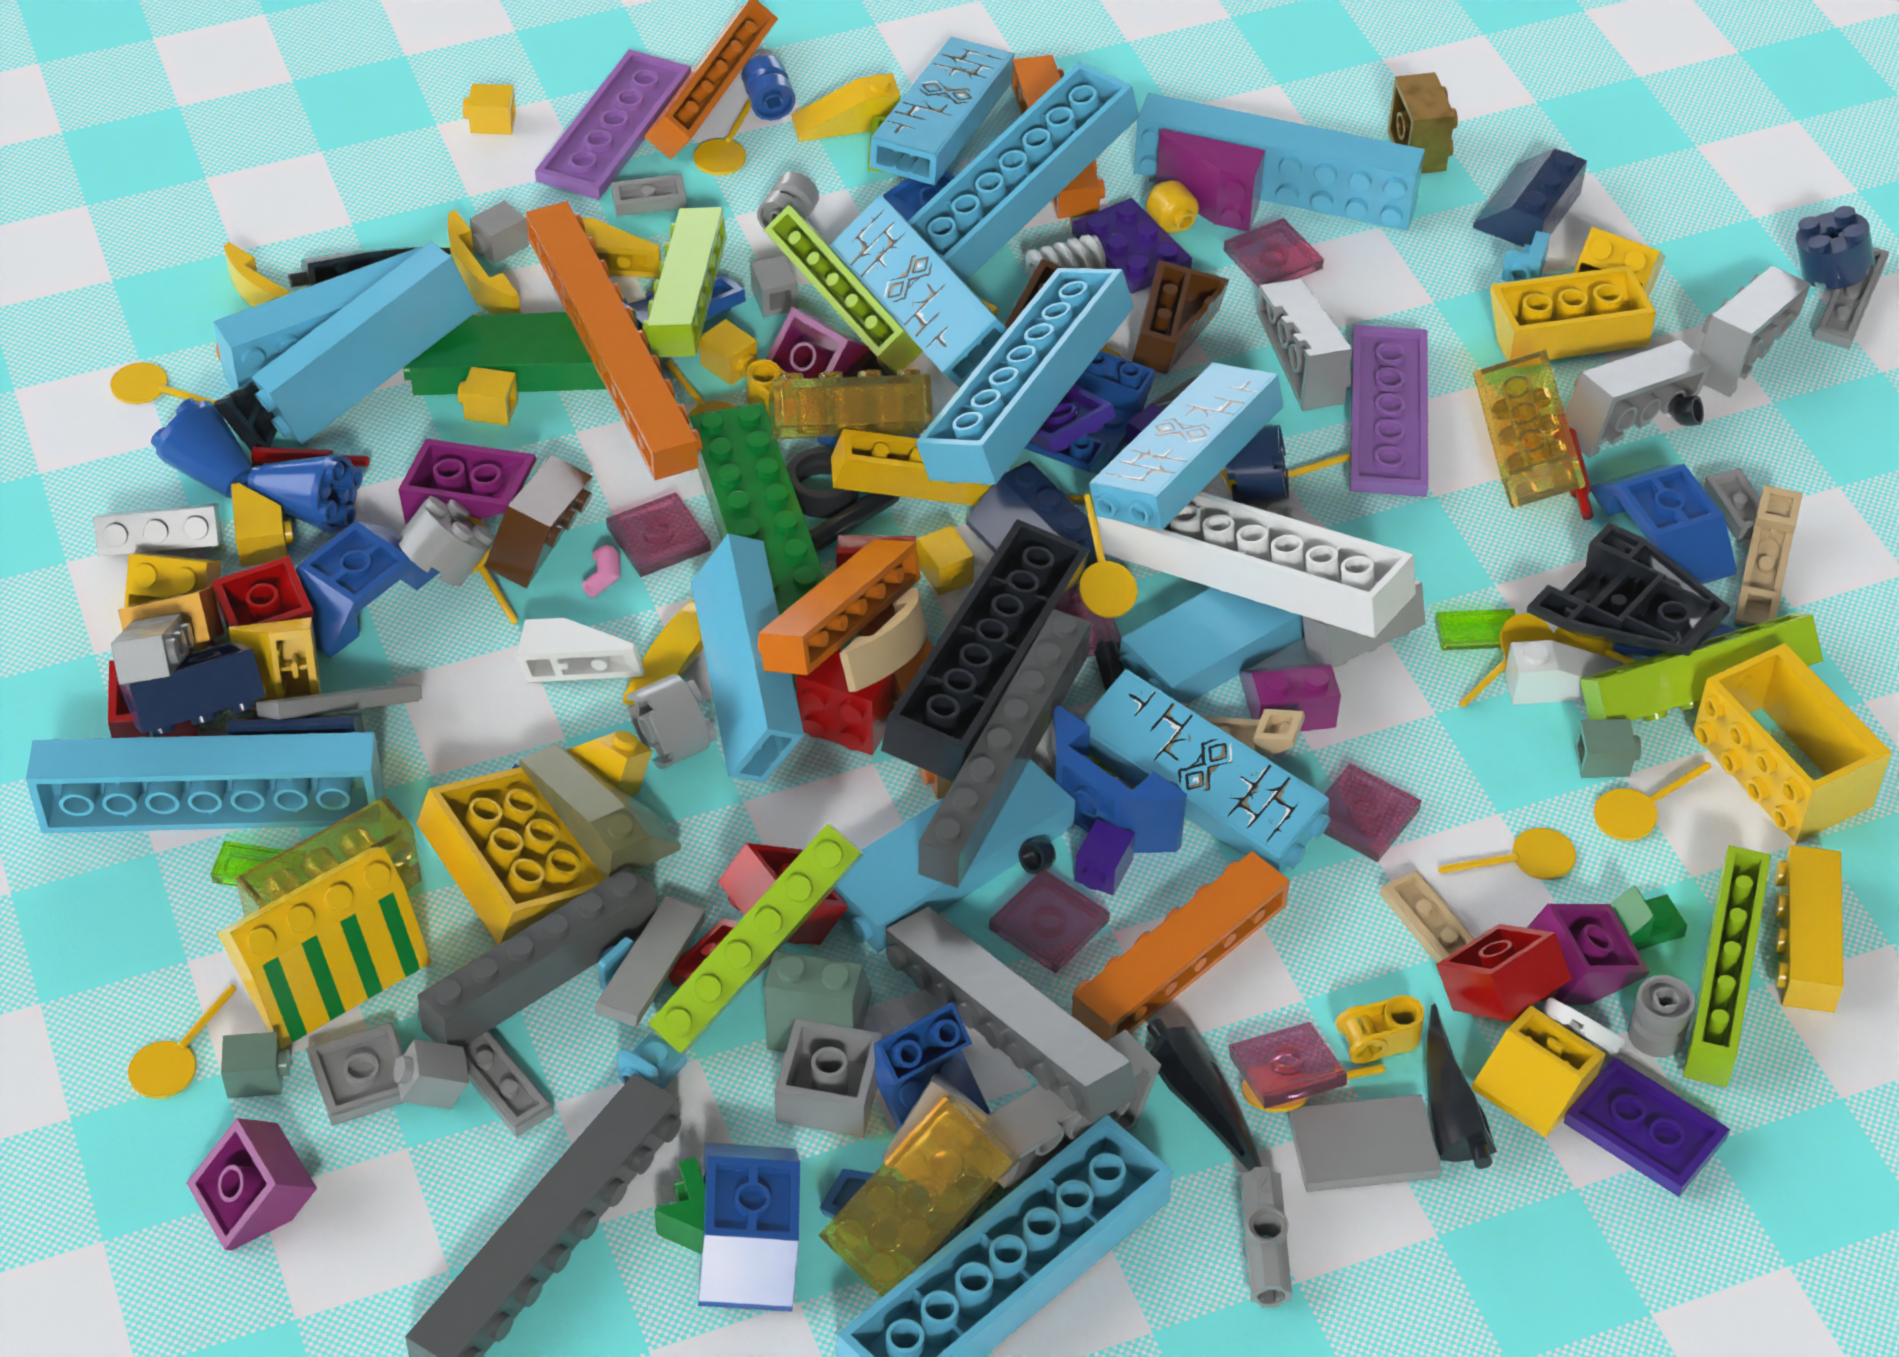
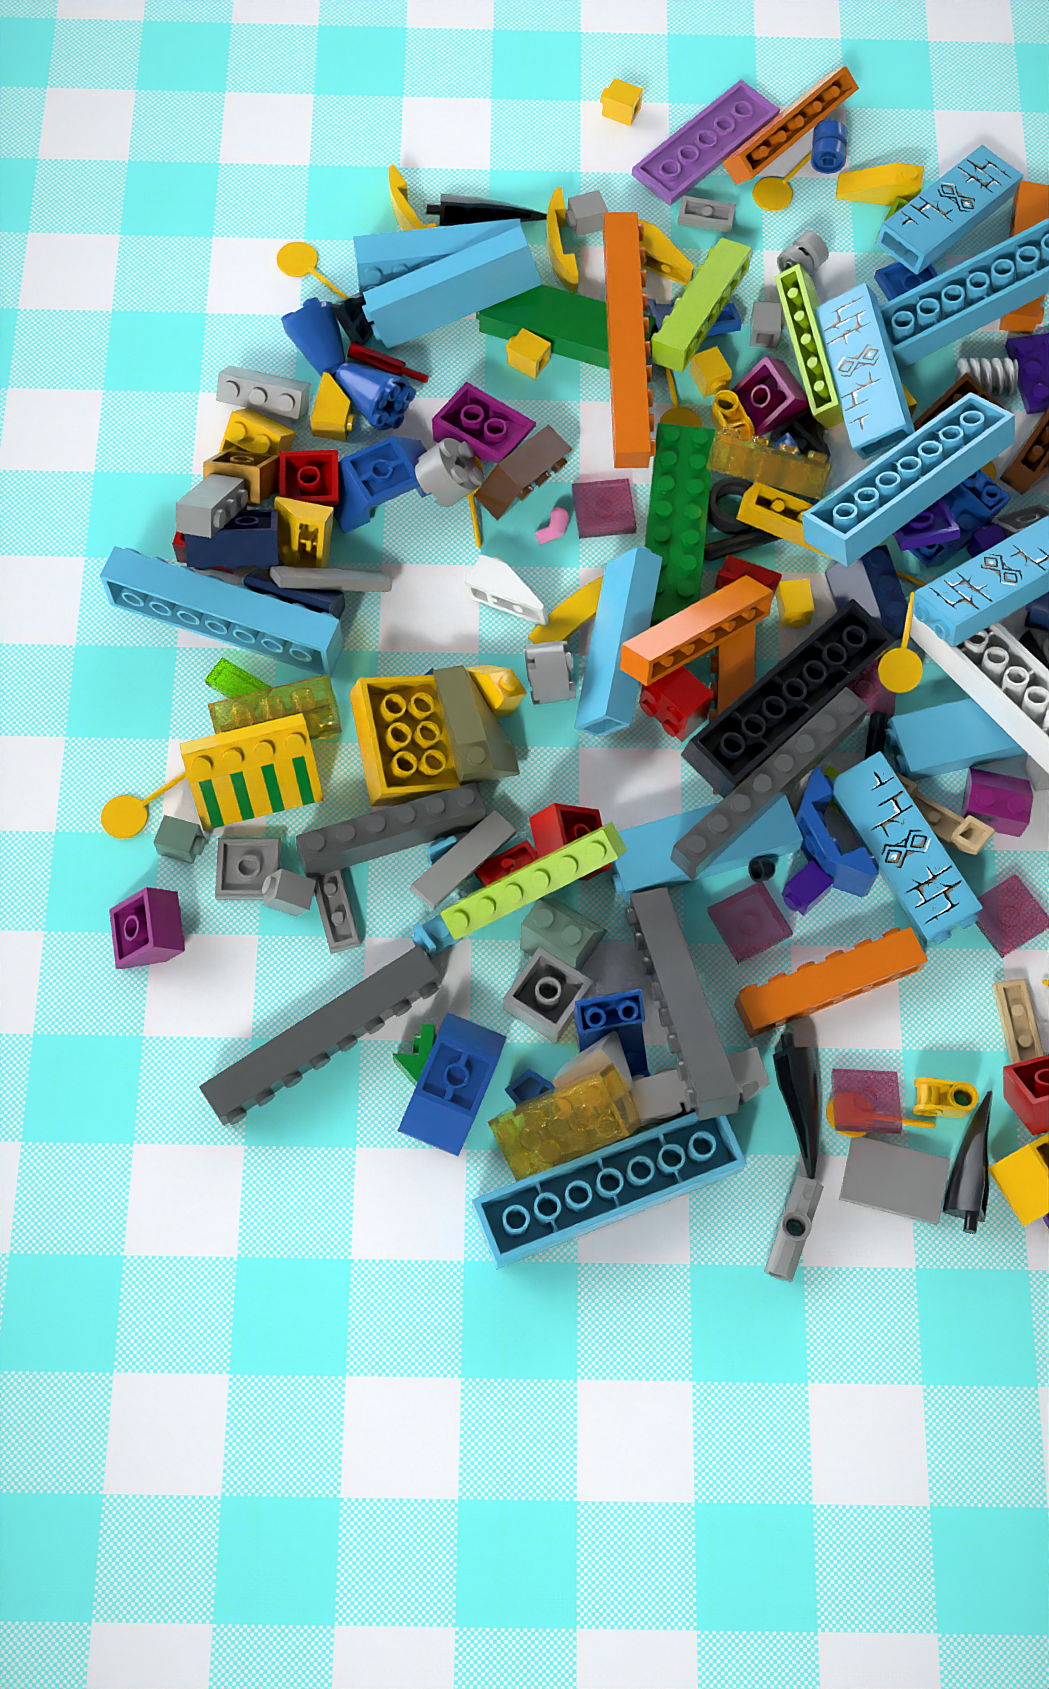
camera: 20 degrees right, 20 degrees up
(891, 647) = (701, 686): tan slope -> none

